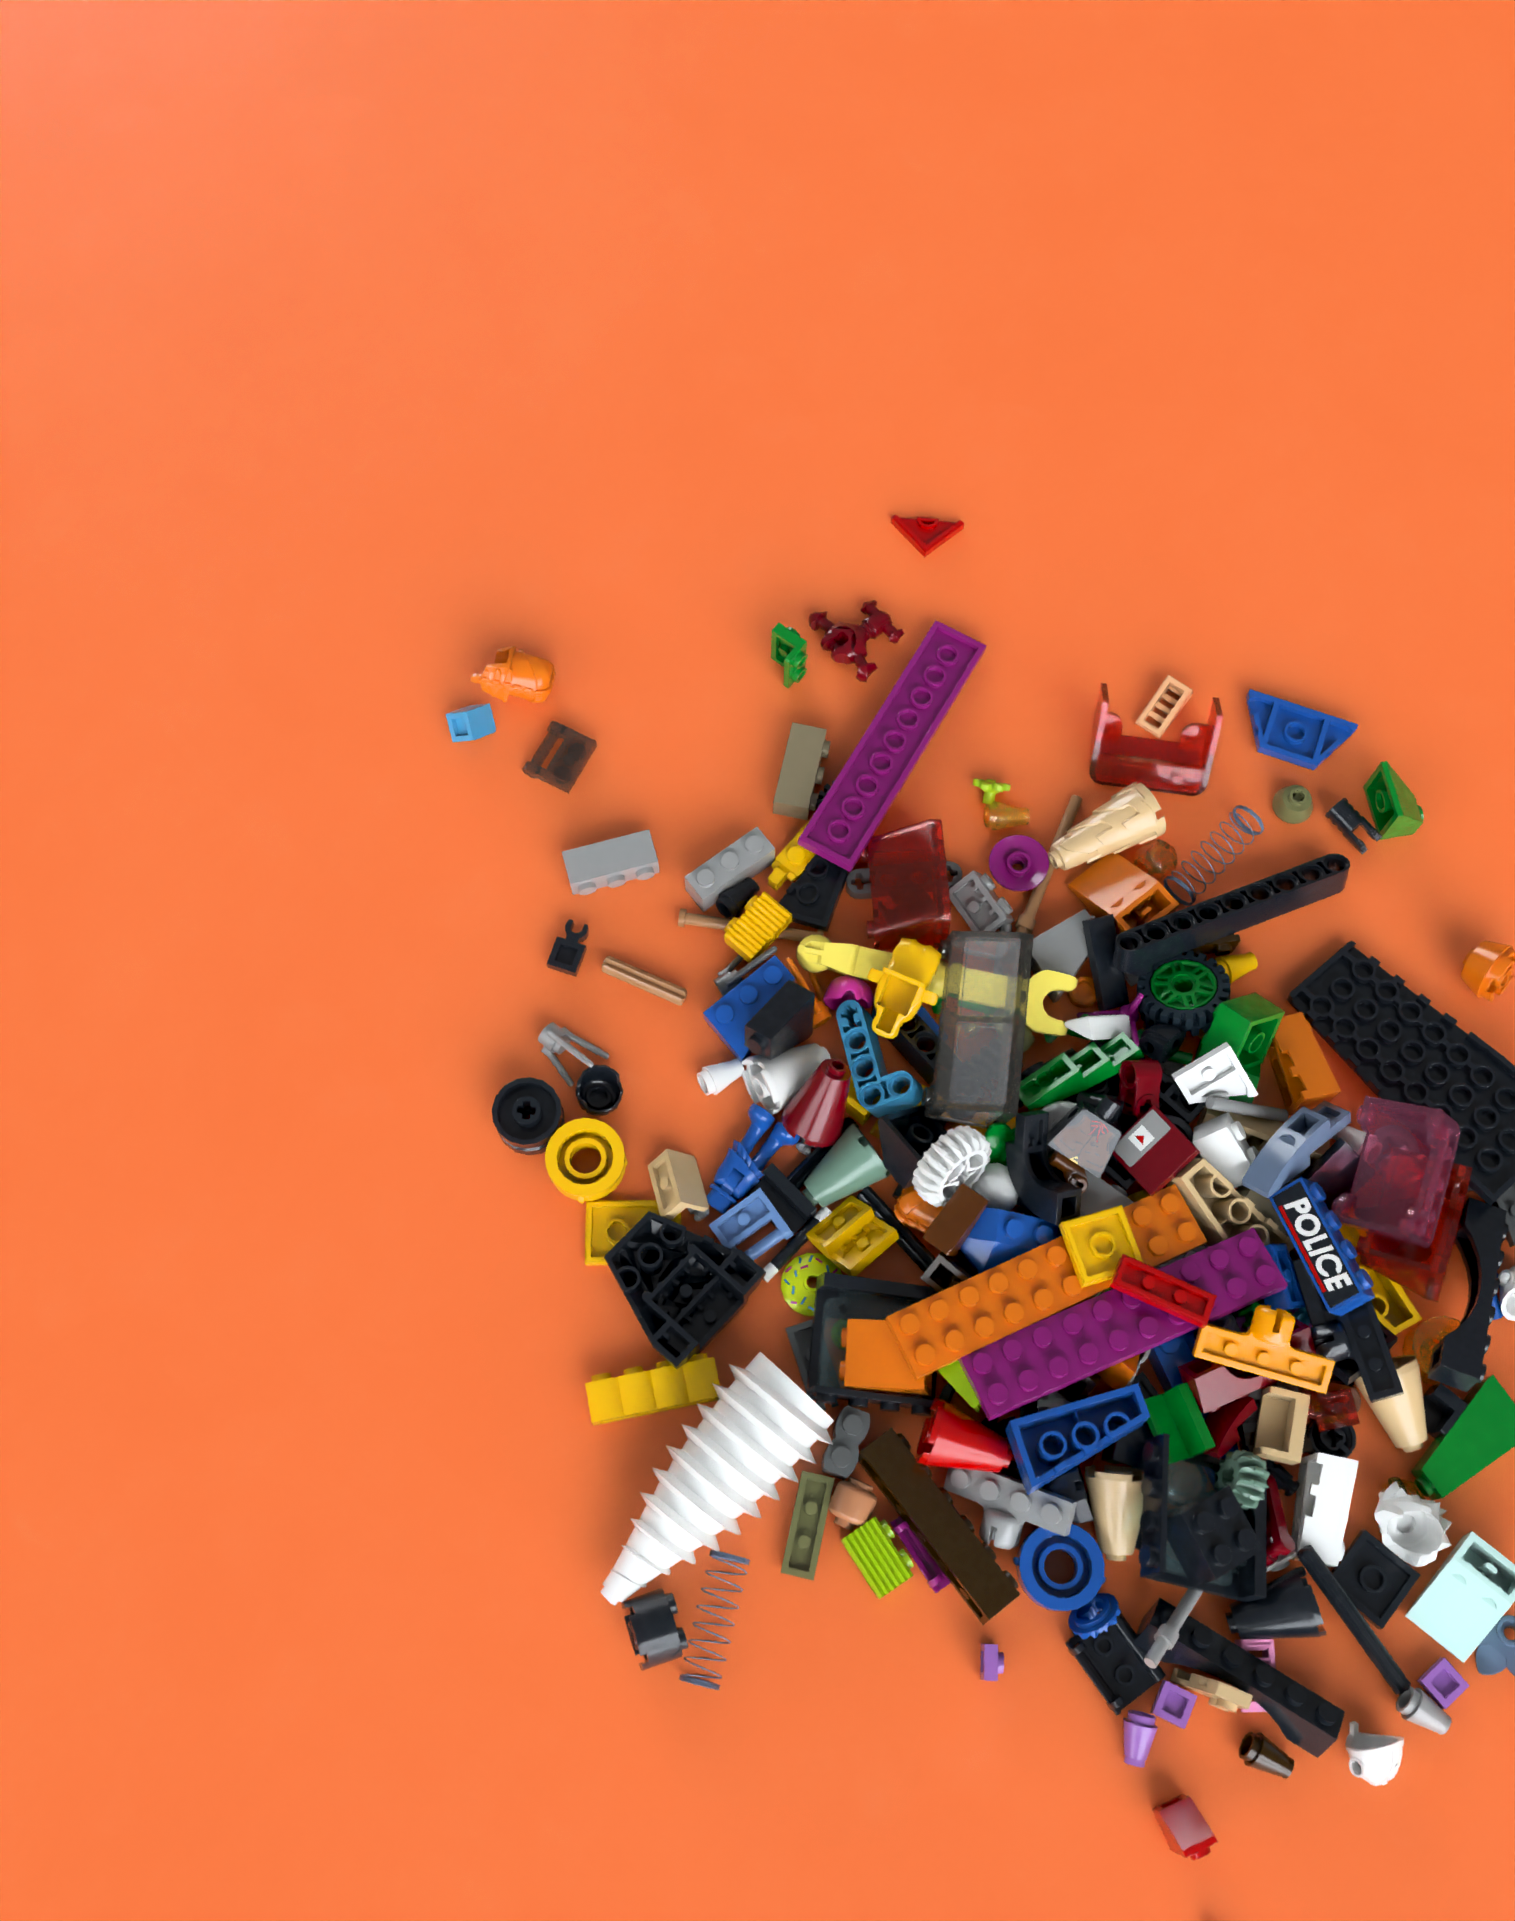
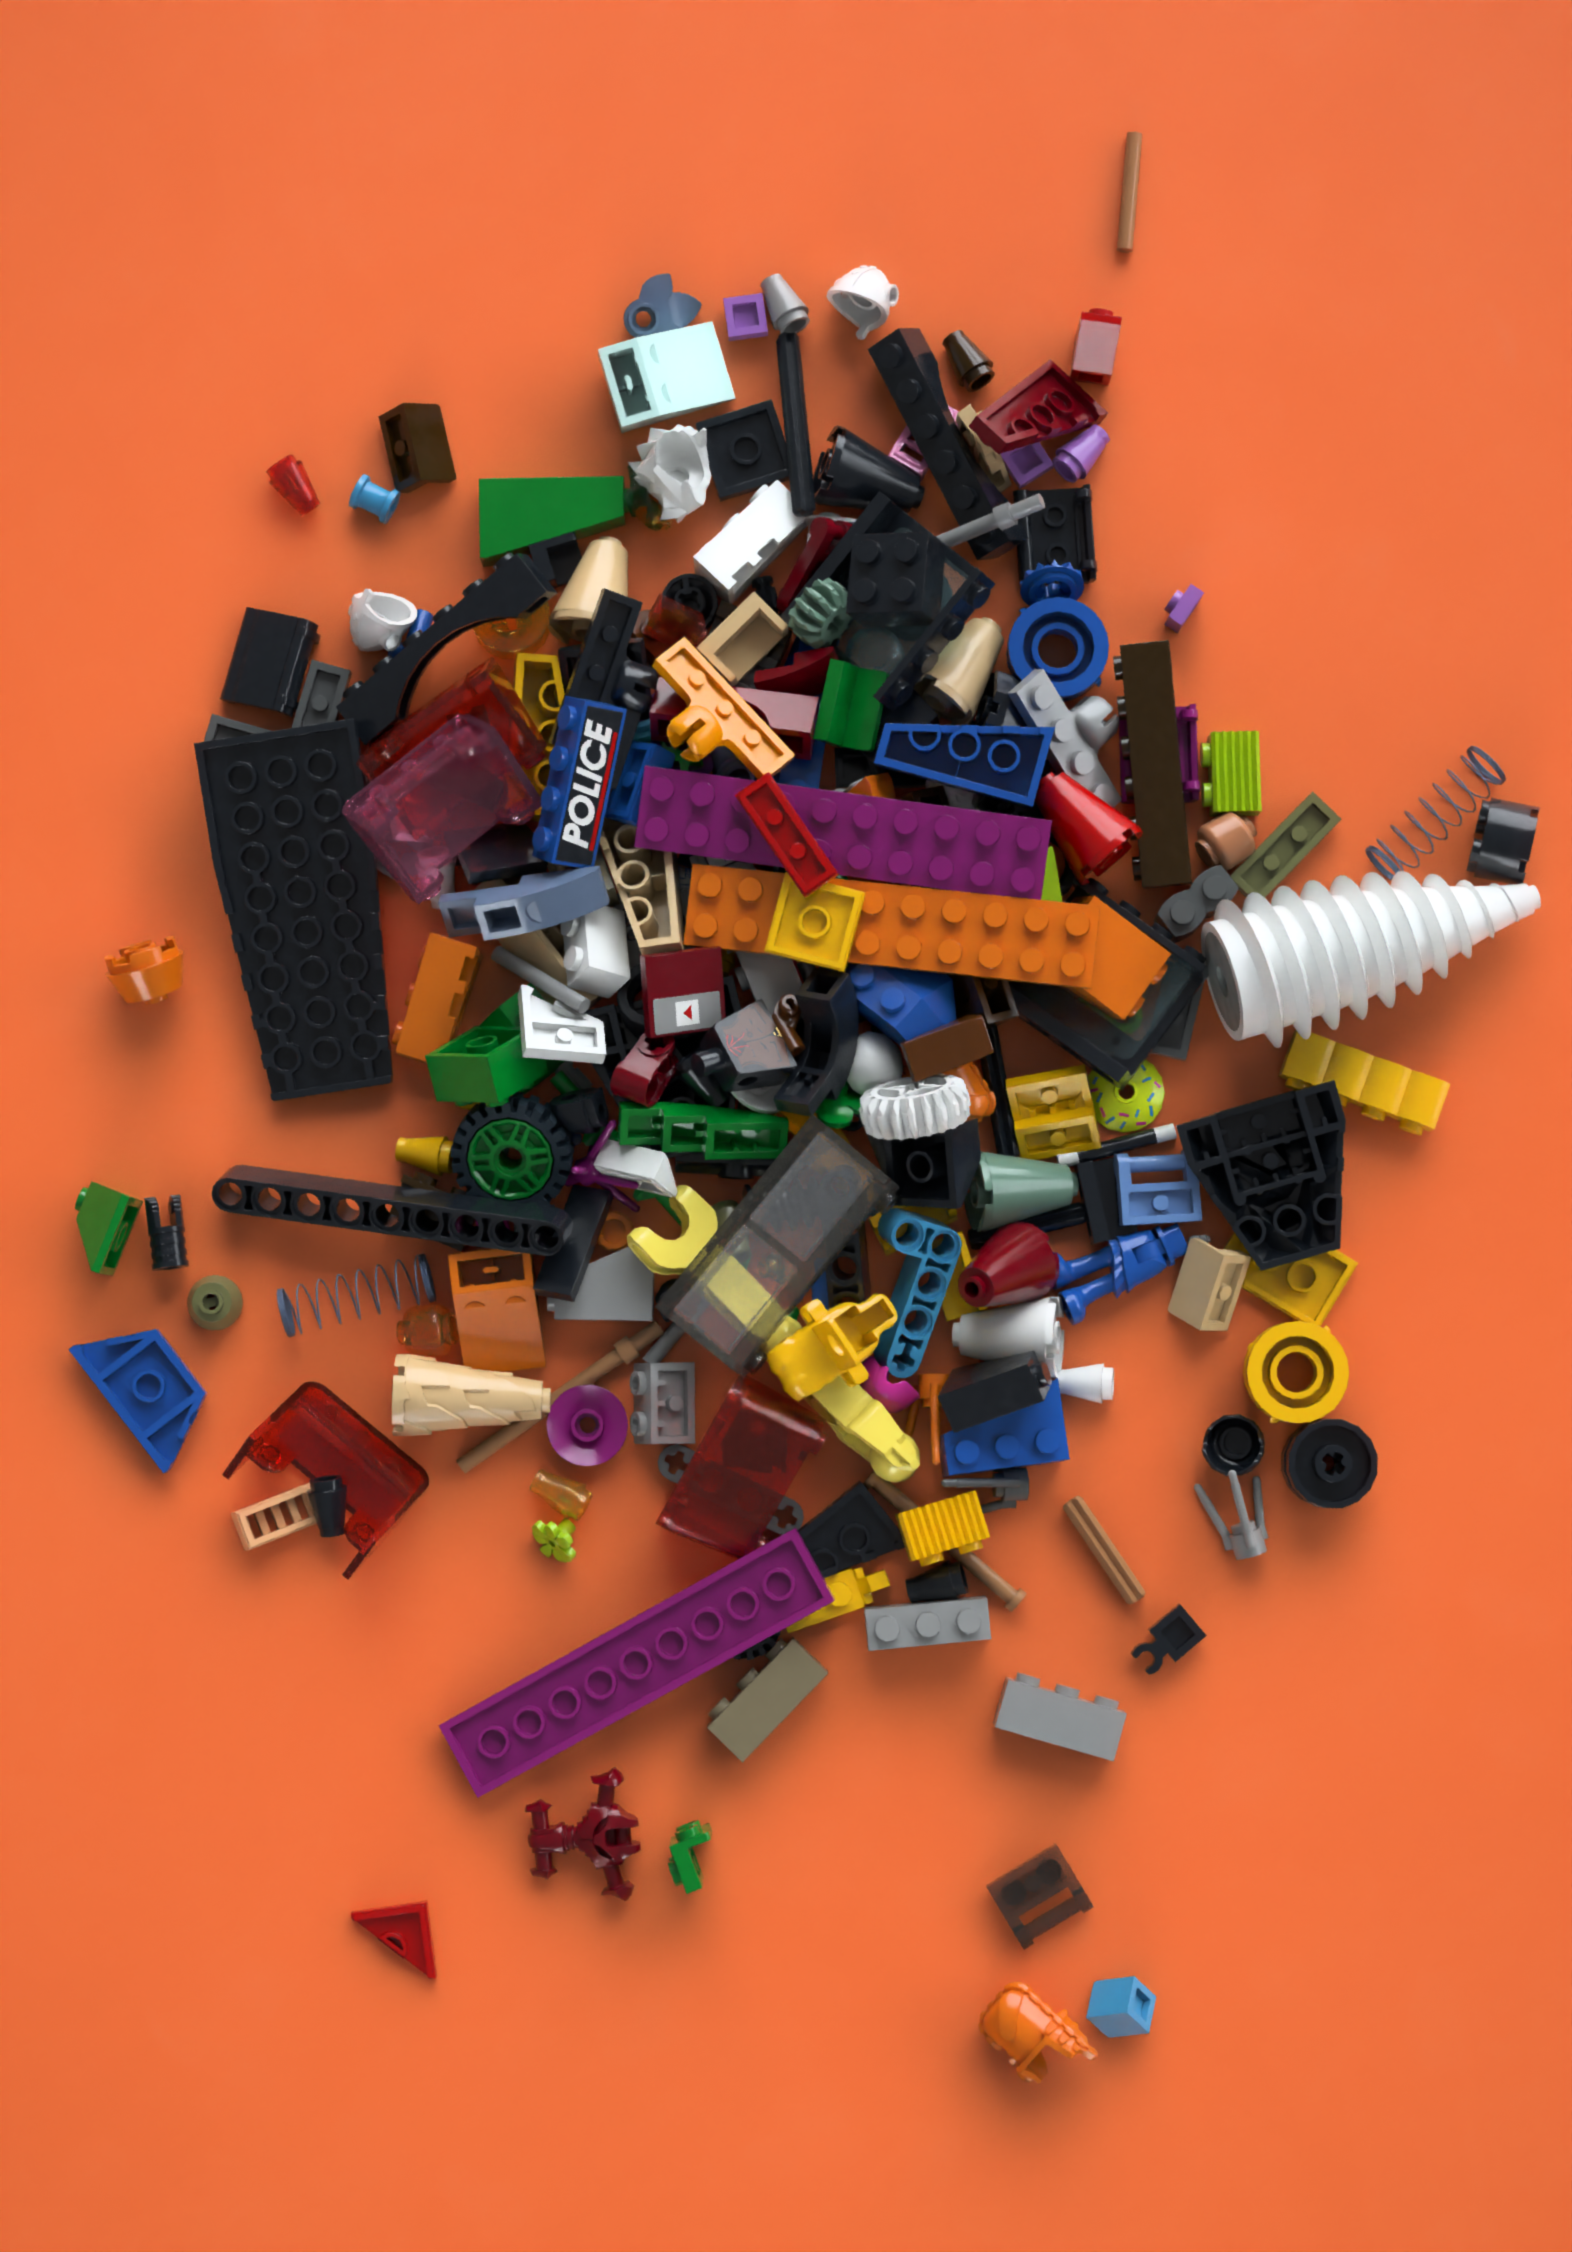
camera: 150 degrees left, 15 degrees up
(1142, 729) = (328, 1504): none -> black cone
(1195, 1743) = (1037, 410): none -> dark red wing
(1422, 1487) = (636, 495): none -> clear green hand

